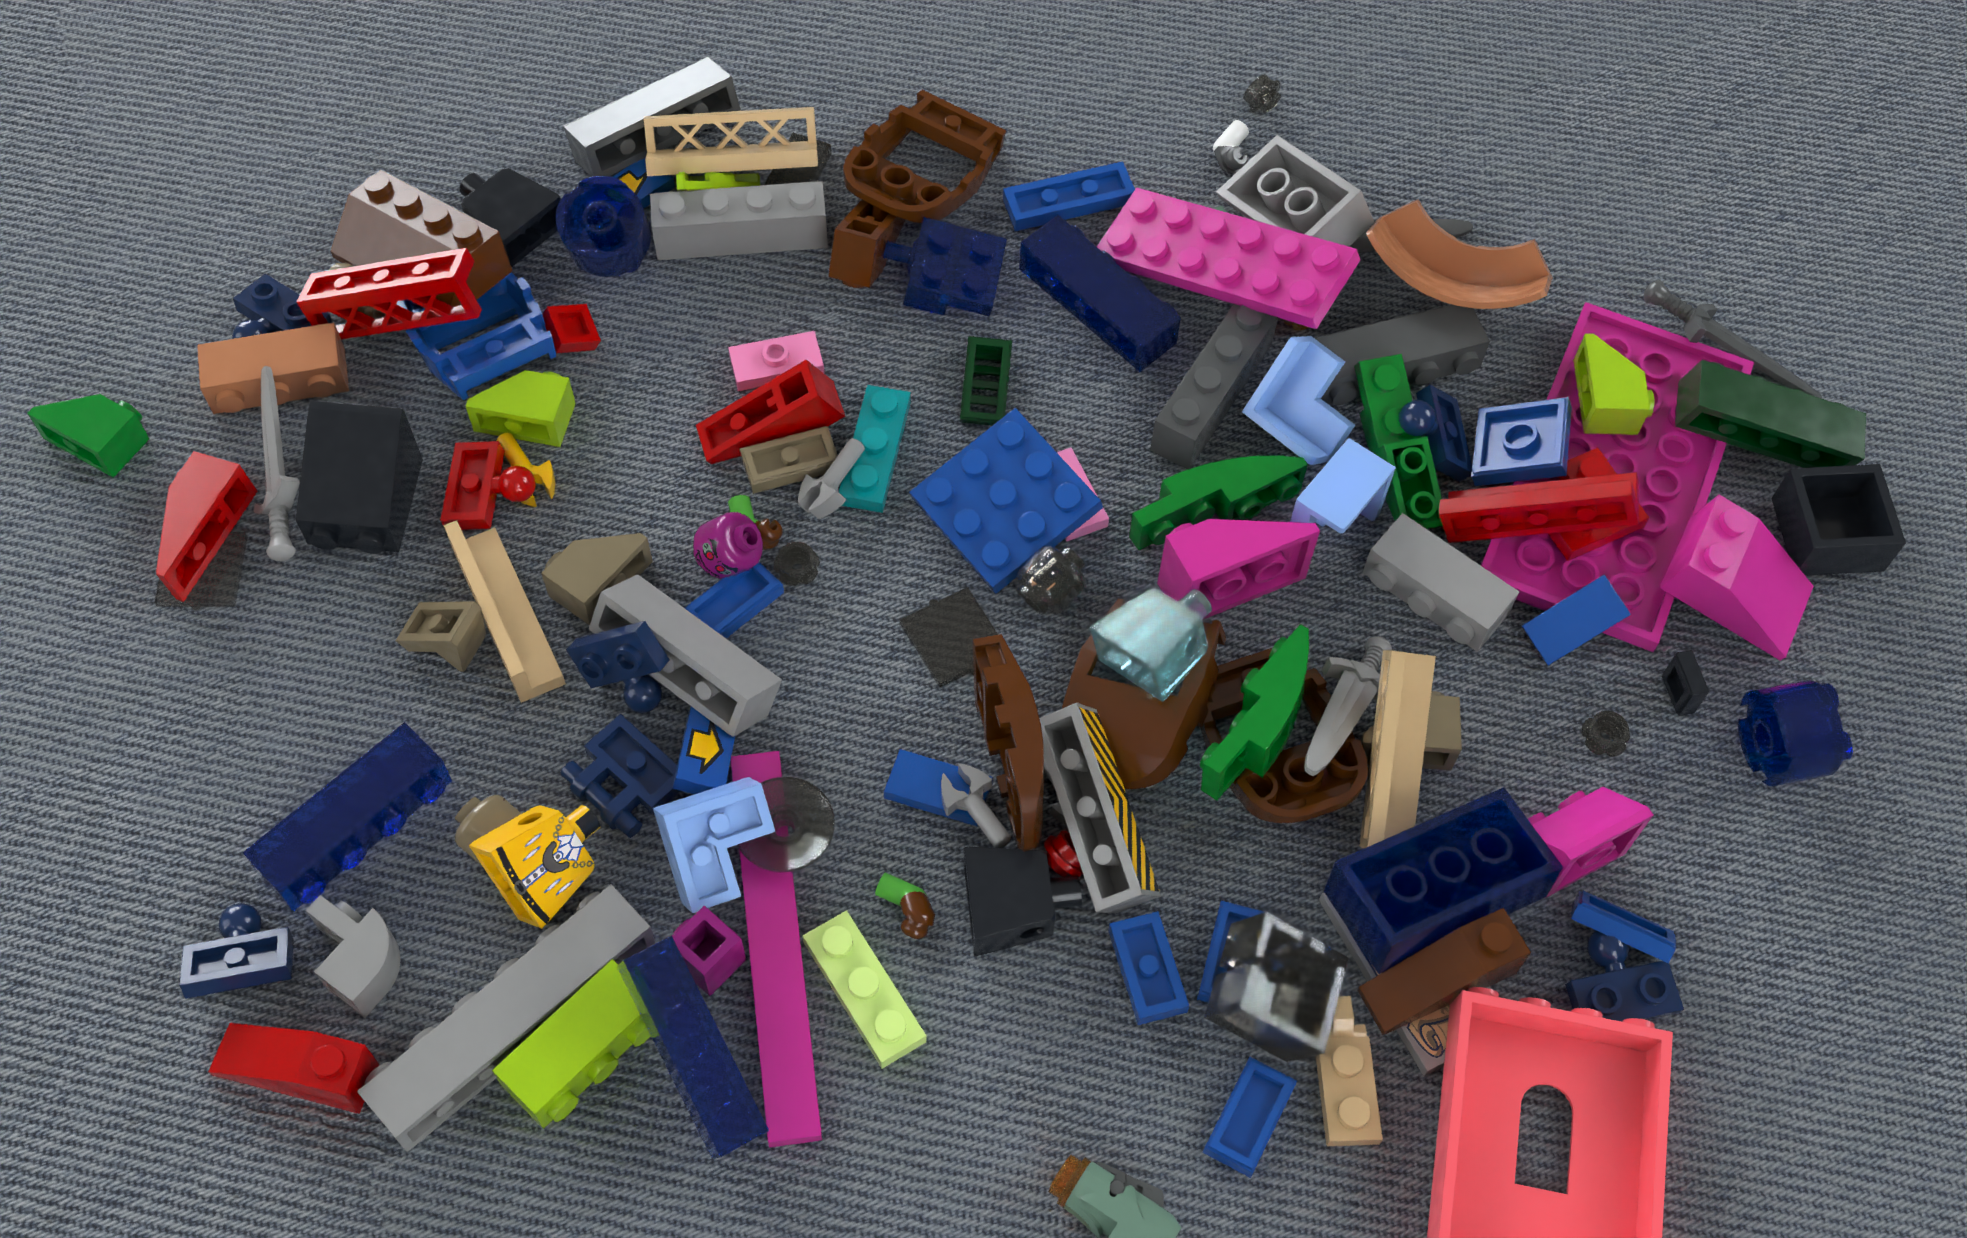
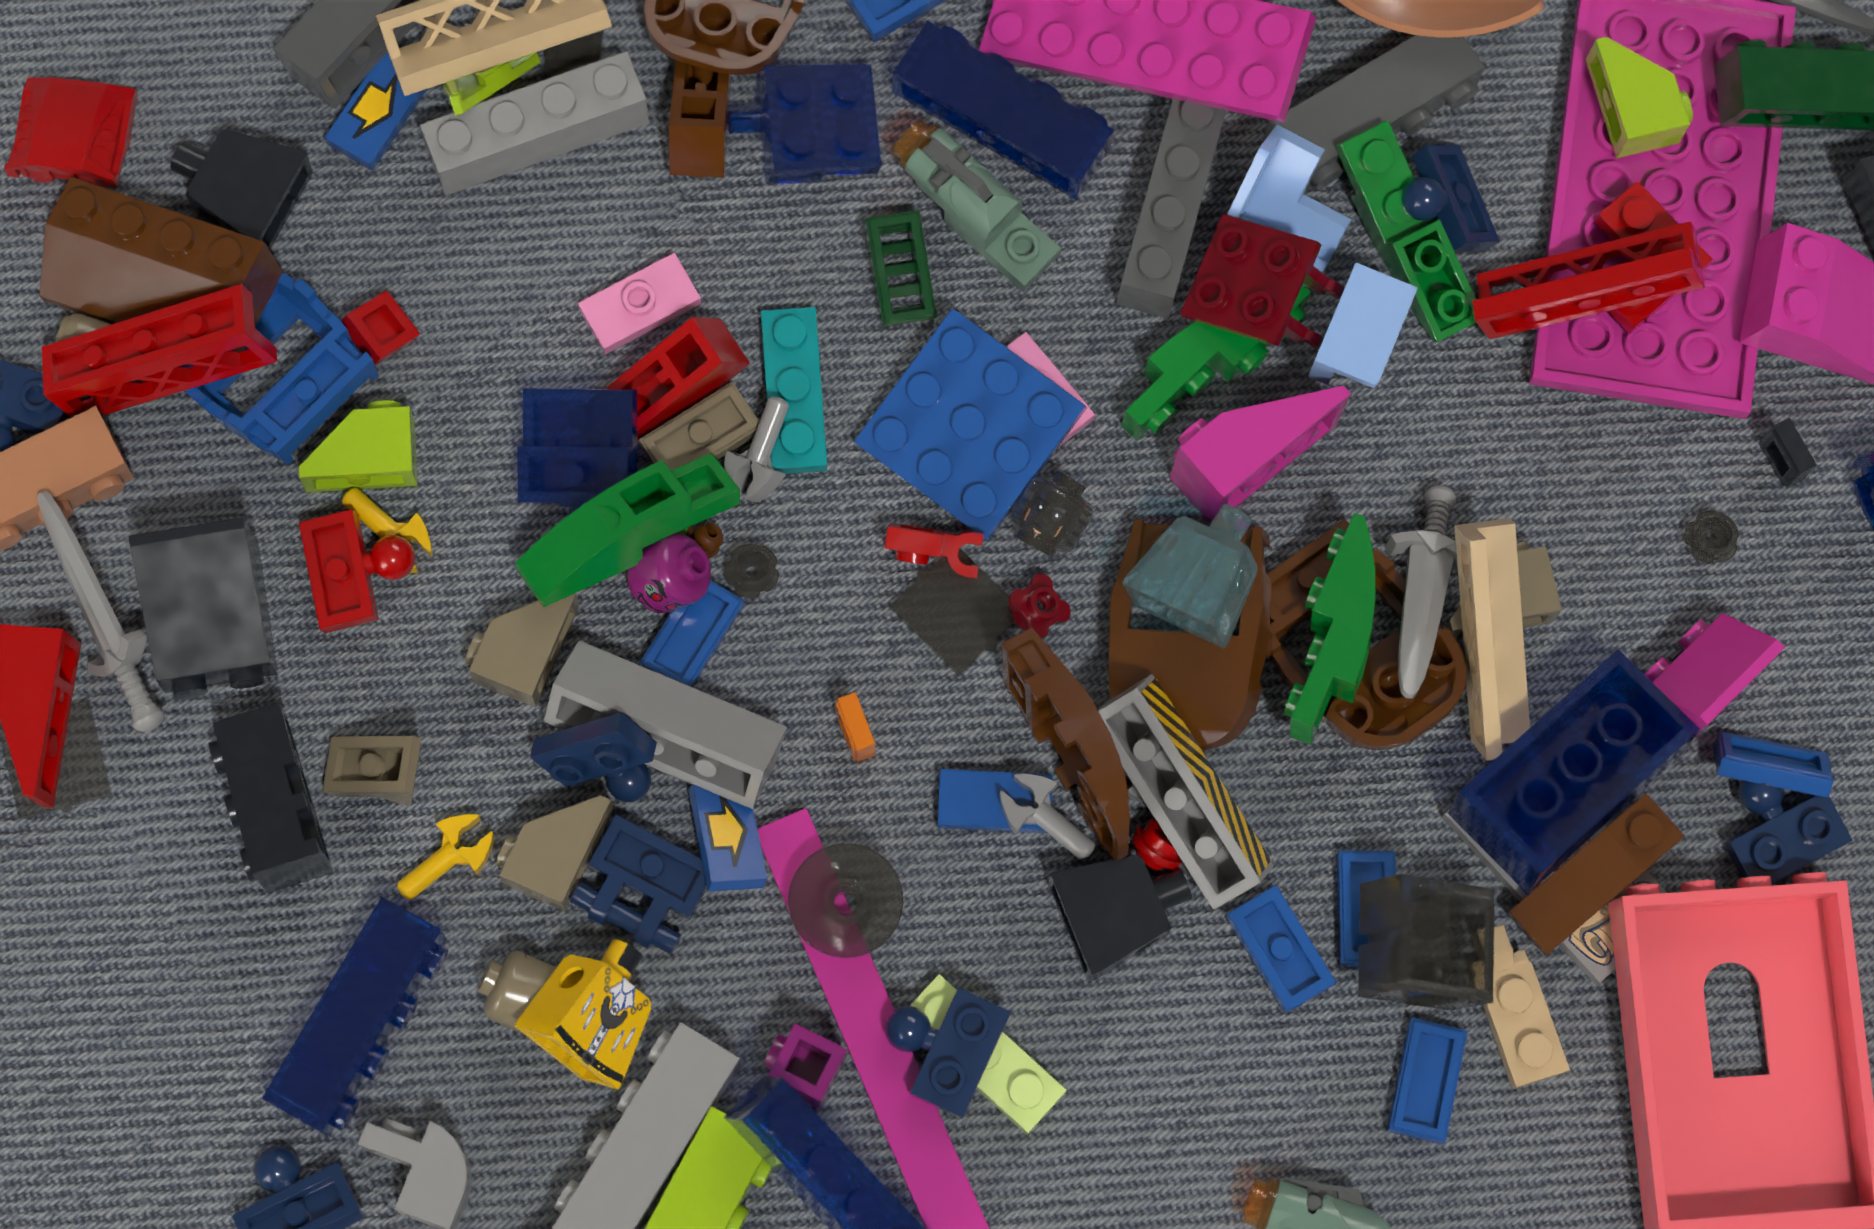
camera: 20 degrees left, 15 degrees up
(349, 634) = (269, 799): none -> black wedge
(402, 150) = (72, 131): none -> red slope
(479, 714) = (448, 855): none -> yellow bar
(506, 612) = (436, 716): tan fence -> none
(559, 727) = (554, 851): none -> dark tan slope
(582, 222) = (350, 166): clear blue brick -> none
(688, 442) = (575, 443): none -> clear blue plate
(688, 493) = (618, 523): none -> green slope
(701, 830) = (761, 936): light blue panel -> none
(837, 973) = (956, 1050): none -> dark blue plate
(839, 698) = (855, 727): none -> orange tile
(912, 901) = (1009, 945): reddish brown arm -> none
(937, 574) = (919, 543): none -> red plate
(1026, 635) = (1028, 615): none -> dark red plate
(1059, 349) = (976, 204): none -> sand green plate
(1261, 439) = (1254, 280): none -> dark red plate
(1439, 582) = (1491, 399): light grey brick -> none
(1522, 442) = (1548, 190): blue tile -> none
(1575, 620) = (1653, 409): blue tile -> none

